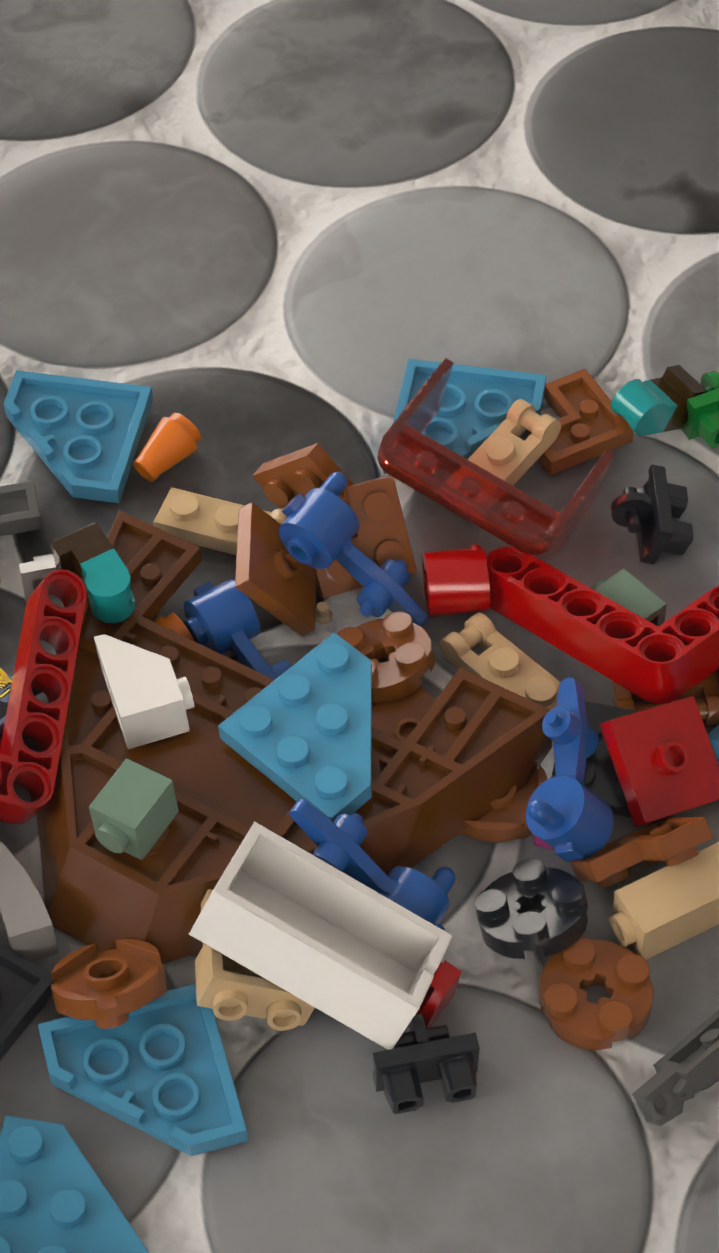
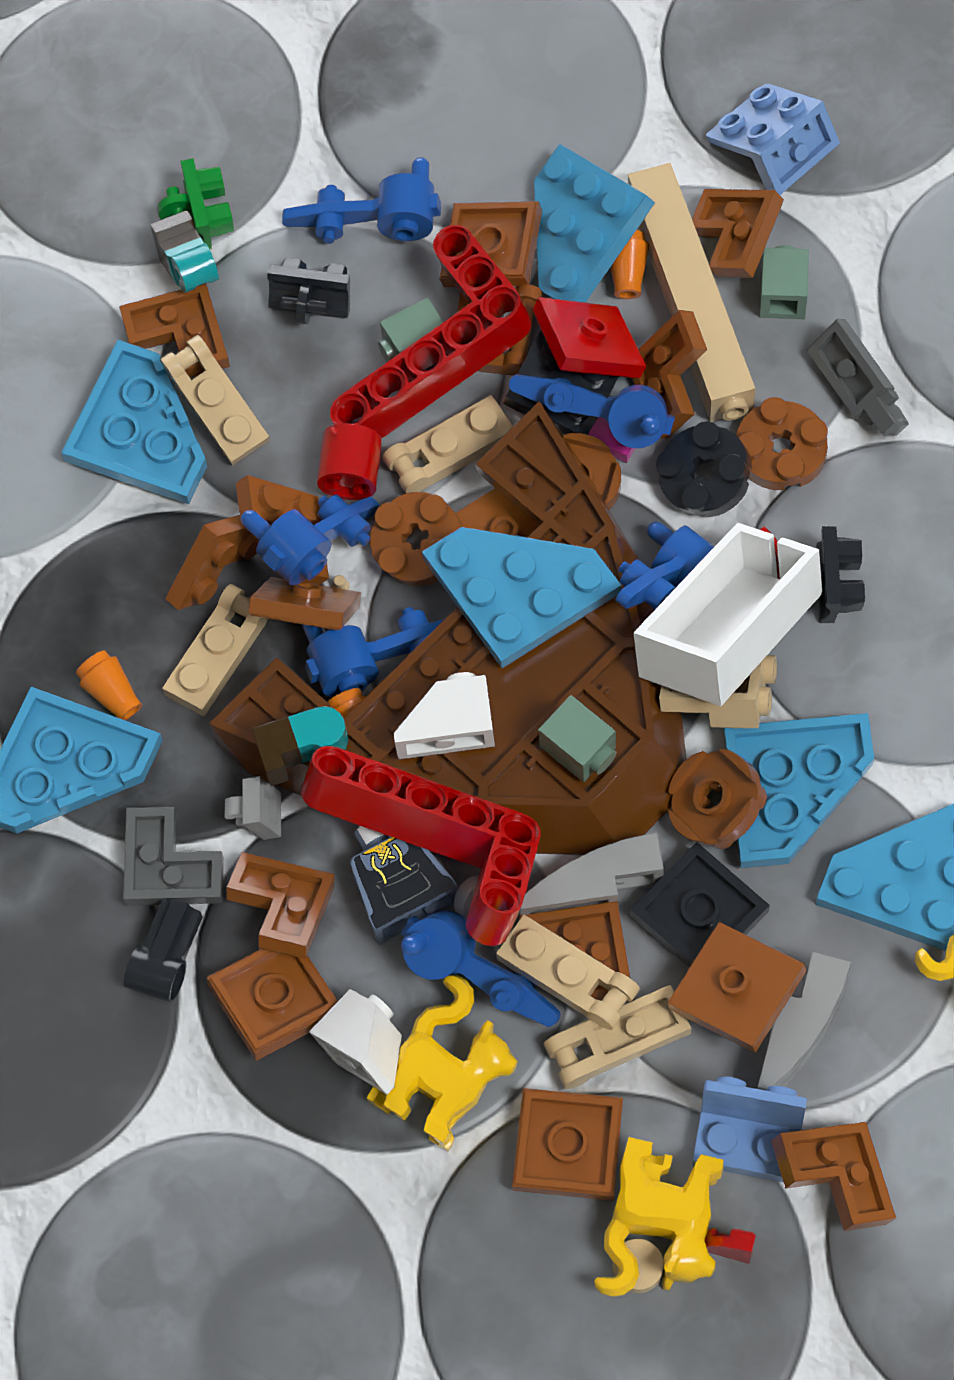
camera: 75 degrees left, 15 degrees up
(473, 490) = (308, 390): clear red windscreen -> none

